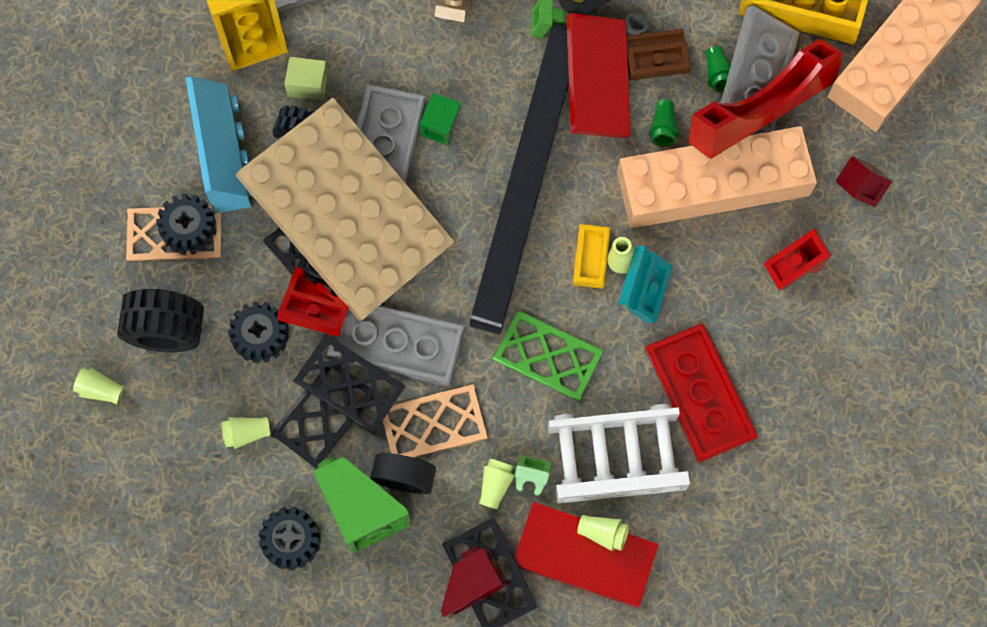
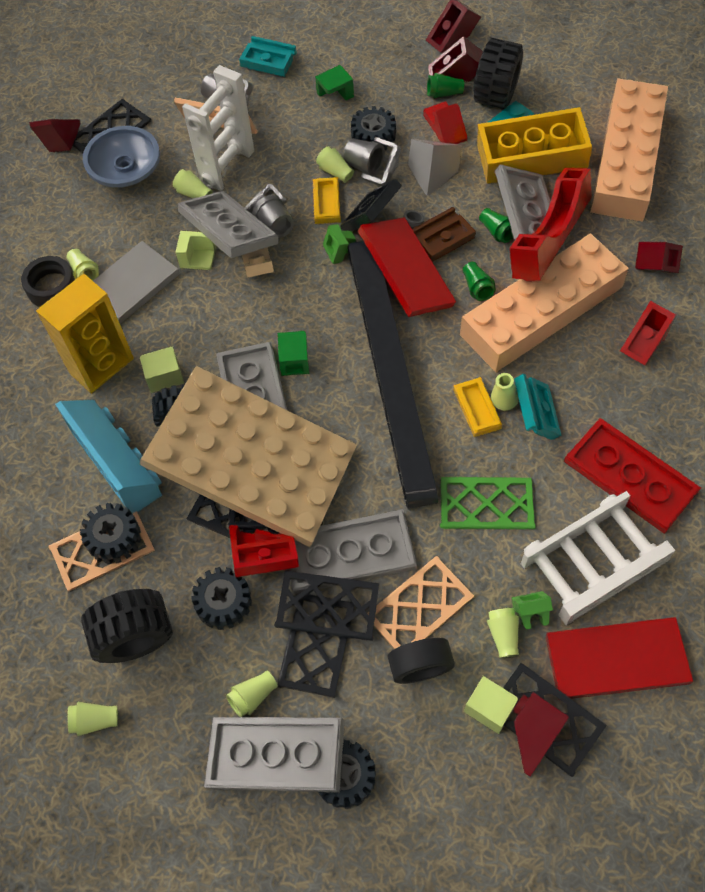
camera: 20 degrees left, 10 degrees down
(238, 493) = (275, 754): none -> light grey tile
(359, 505) = (395, 707): bright green slope -> none
(445, 539) = (490, 704): none -> yellowish green panel
(605, 531) = (627, 627): yellowish green cone -> none

